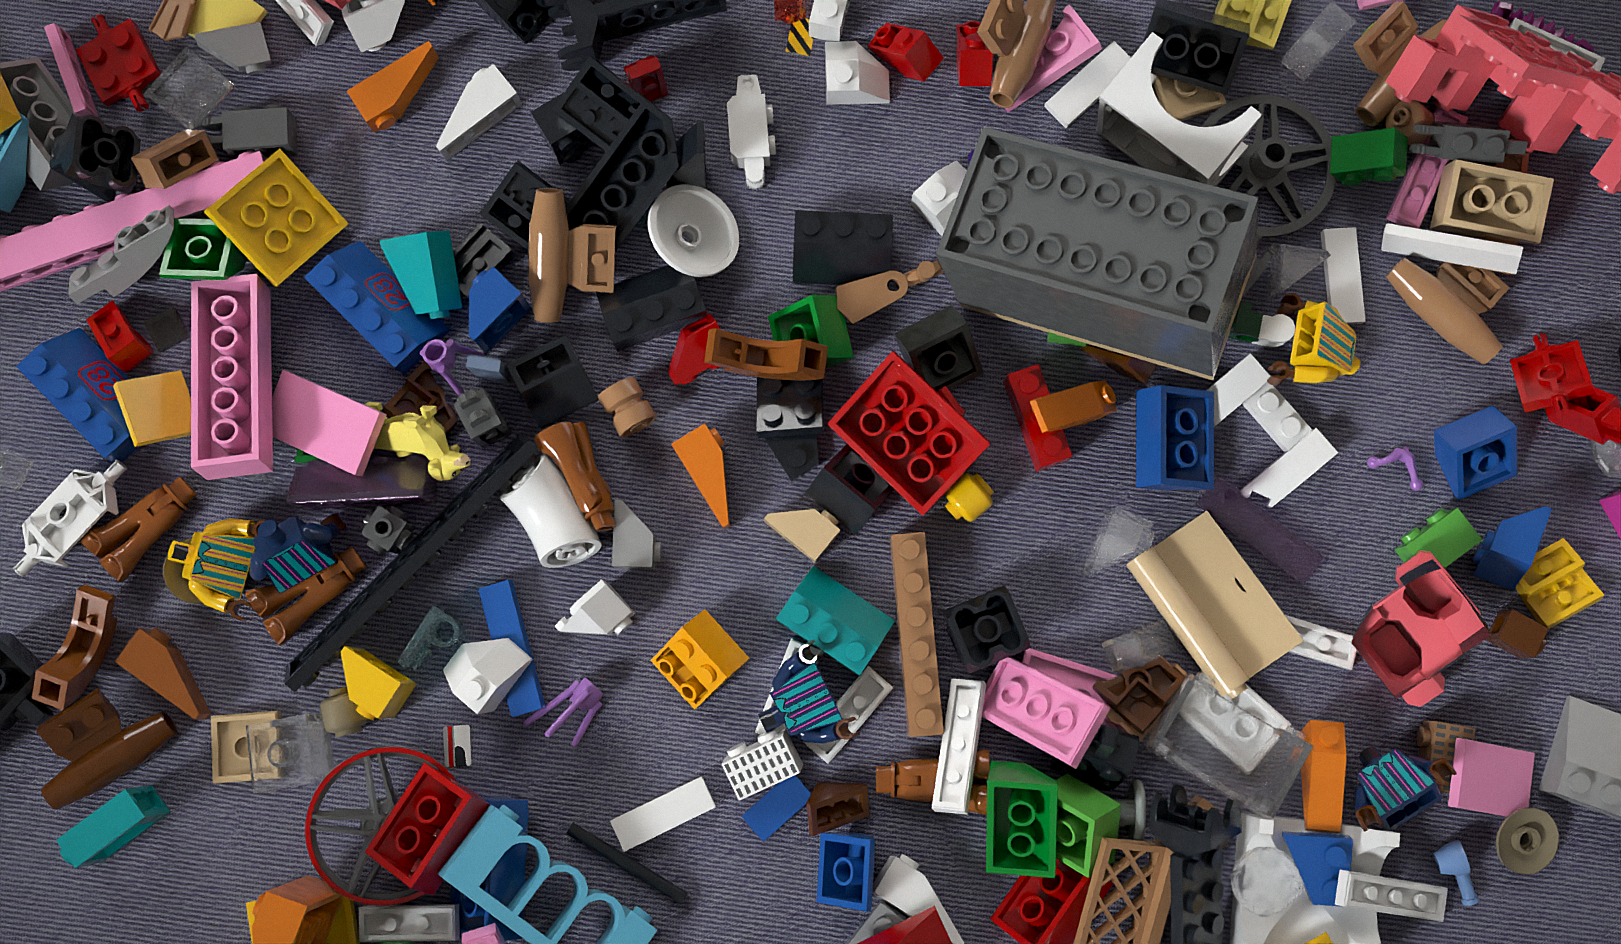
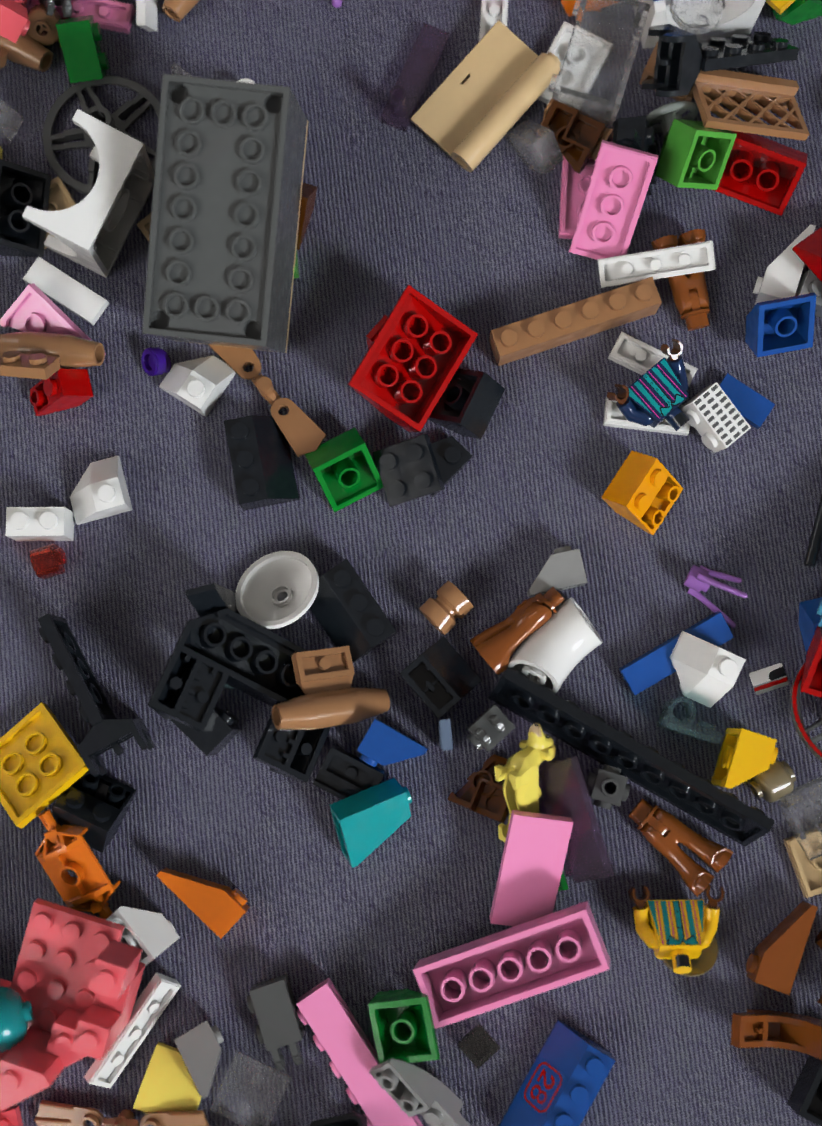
camera: 100 degrees left, 0 degrees up
(86, 500) = (655, 1065): white plate -> none
(118, 338) = (503, 1083): red plate -> none
(148, 517) = (648, 1002): dark orange piece -> none
(155, 407) = (555, 1028): yellow tile -> none
(174, 159) = (323, 1082): medium nougat brick -> none
(276, 217) = (356, 967): yellow plate -> none
(293, 550) = (651, 860): dark blue torso -> none
(375, 304) = (410, 857): blue slope -> none
(442, 358) = (448, 776): medium lavender plant -> none
(480, 107) = (204, 812): white slope -> none
(598, 612) = (629, 586): white slope -> none
(647, 78) = (144, 669): red plate -> none
(663, 813) = (775, 491): white tile -> none
(690, 351) = (381, 560): red slope -> none
(705, 464) = (478, 528): orange slope -> none
(749, 132) = (173, 566): white hinge -> none
(765, 358) = (375, 492): dark orange arch -> none
(799, 39) = (78, 548): sticker -> none
(805, 530) = (511, 431): tan slope -> none
(836, 619) = (580, 389): teal slope -> none
(836, 805) = (729, 352): reddish brown slope -> none
(906, 50) = (70, 449): red slope -> none
(940, 349) = (328, 358): pearl dark grey slope -> none
(969, 497) = (452, 302): yellow head -> none
(986, 629) = (557, 263): black piece -> none
(1021, 820) = (704, 198): green slope -> none
(1044, 448) = (369, 266): red brick -> none
(1074, 406) = (354, 232): orange slope -> none
(1117, 540) = (459, 178): clear slope -> none
(1174, 438) = (359, 154): blue slope -> none
(1303, 448) = (340, 55): white wedge -> none
(1321, 344) = (254, 54): yellow torso -> none
(1343, 274) = (188, 54): white tile -> none

